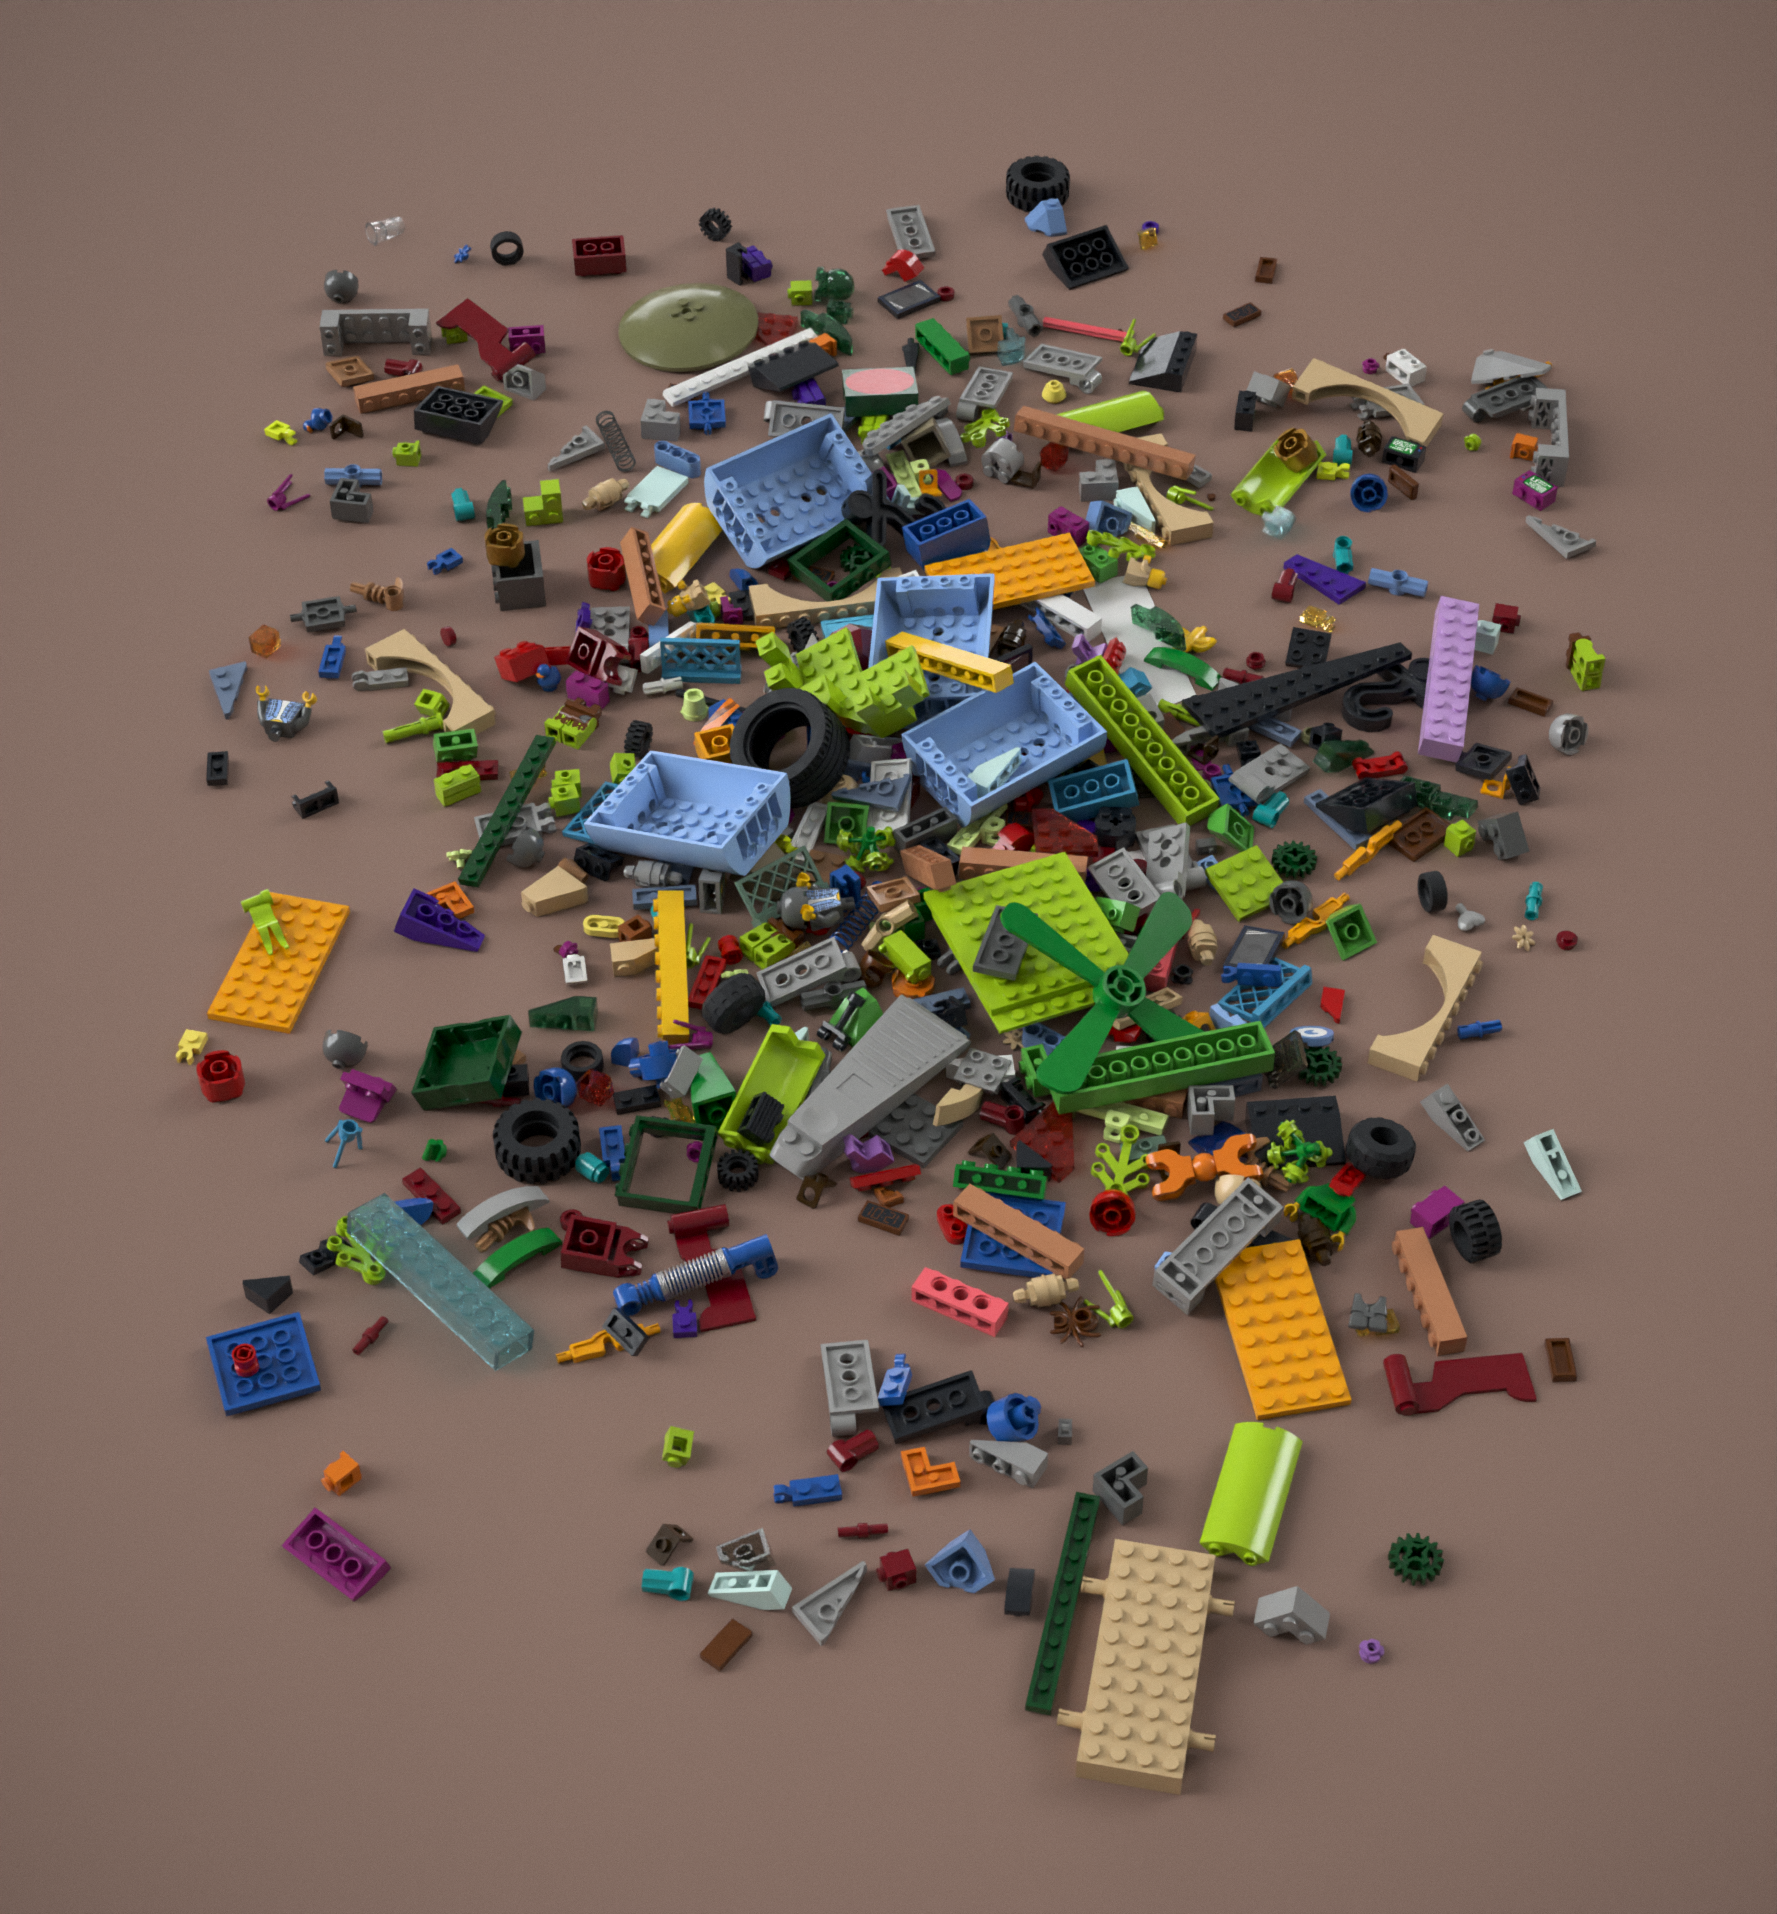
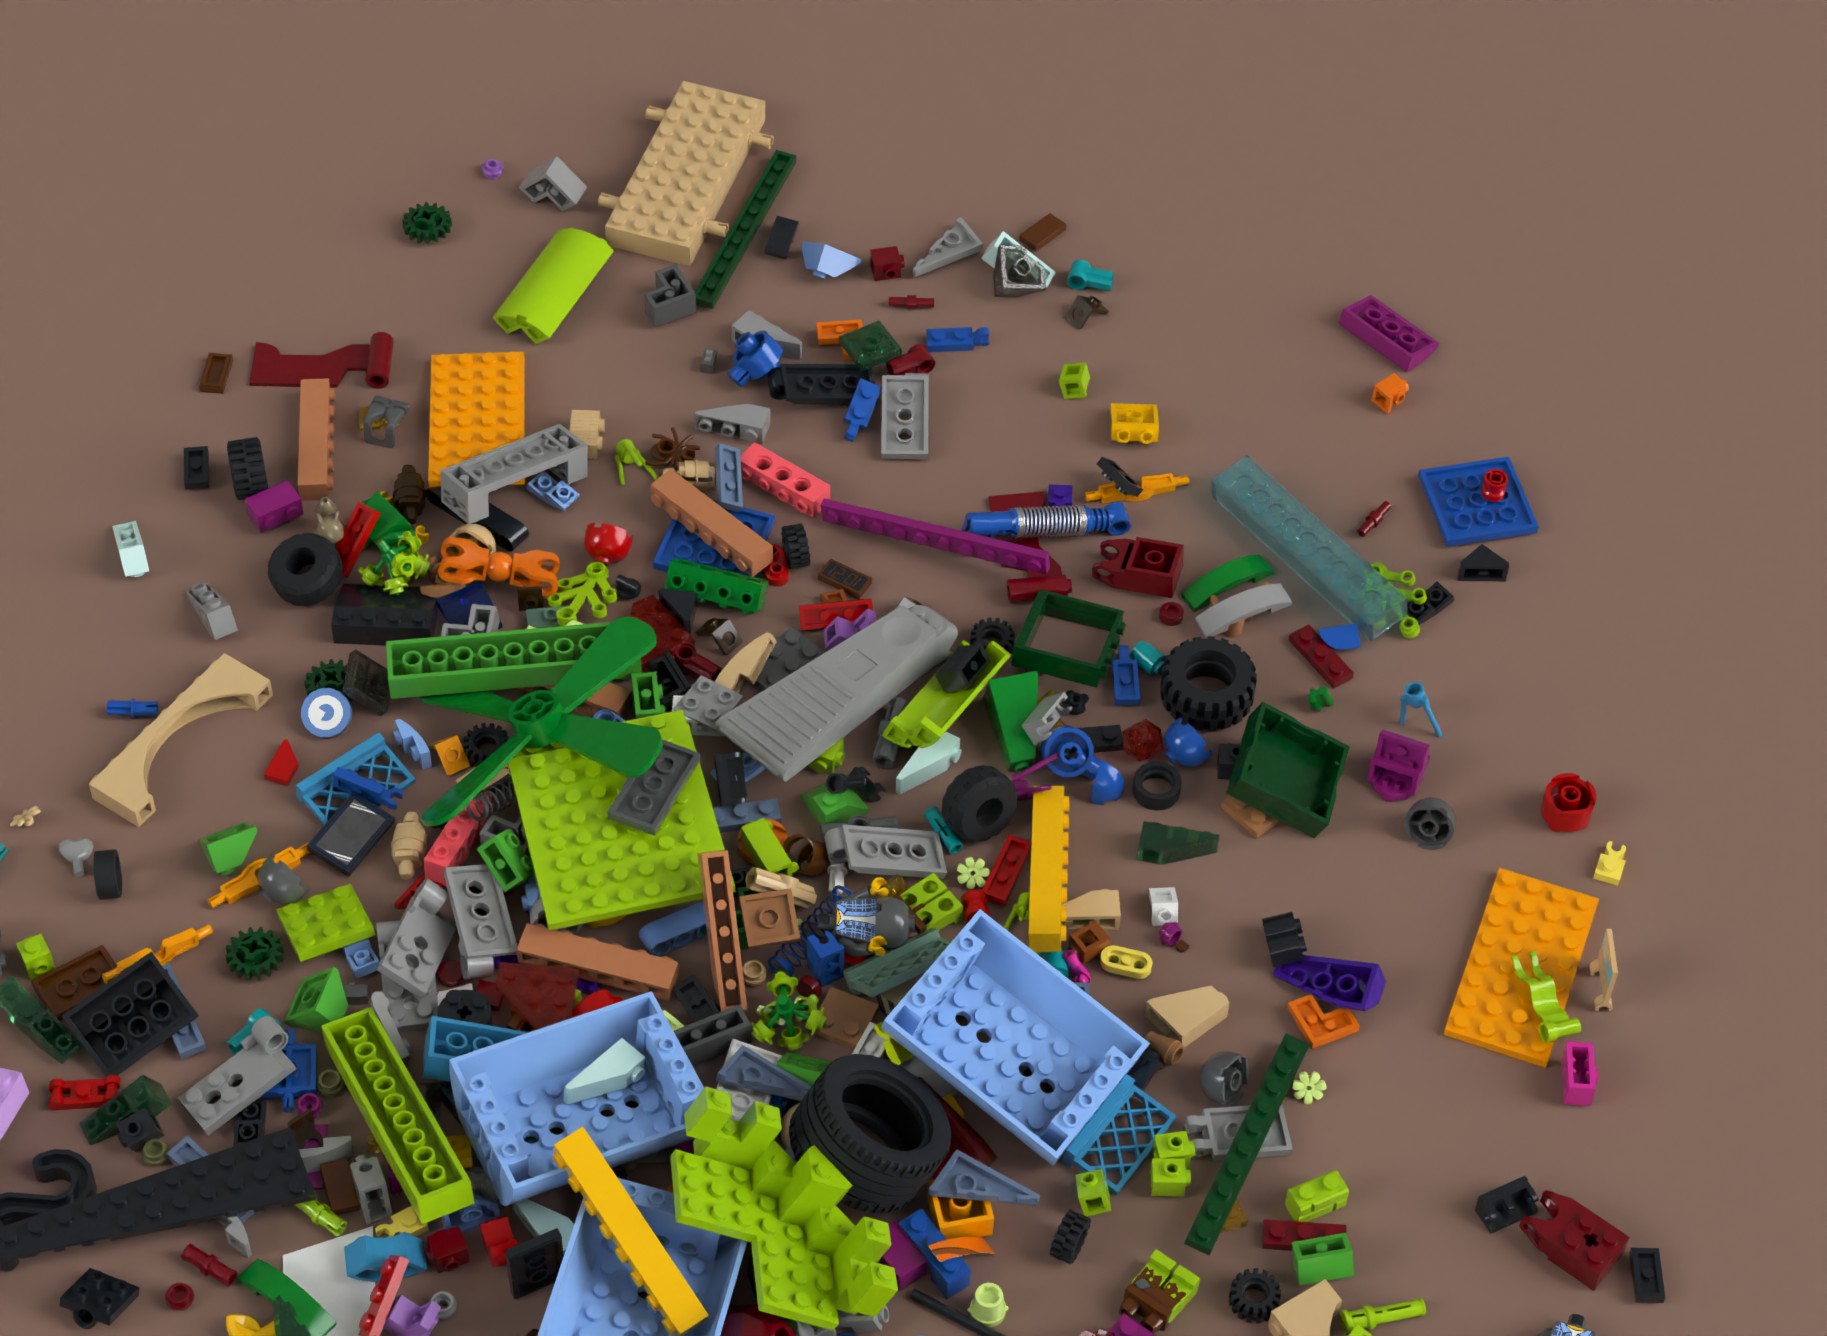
camera: 175 degrees left, 5 degrees up
(214, 936) = (1607, 967): none -> tan flag
(246, 876) = (1578, 1073): none -> dark pink brick
(265, 778) = (1576, 1239): none -> dark red brick
(475, 946) = (1283, 938): none -> black brick
(503, 722) = (1254, 1281): none -> black tyre
(613, 1405) = (1134, 423): none -> yellow plate
(646, 915) = (1076, 968): none -> dark pink arm
(704, 742) = (972, 1180): none -> sand blue wing
(804, 1245) = (935, 536): none -> magenta plate
(896, 1445) = (870, 345): none -> clear green plate
(933, 1224) = (795, 546): none -> black tyre
(1011, 1276) = (728, 477): none -> sand blue plate
(1016, 1359) = (737, 421): none -> light grey slope
(1082, 1183) = (627, 587): none -> black plate
(1167, 810) = (380, 1003): none -> light grey hinge
(1167, 1327) = (587, 427): none -> tan brick
(1375, 1192) = (329, 524): none -> dark tan animal
(1530, 1251) = (196, 467): none -> black plate

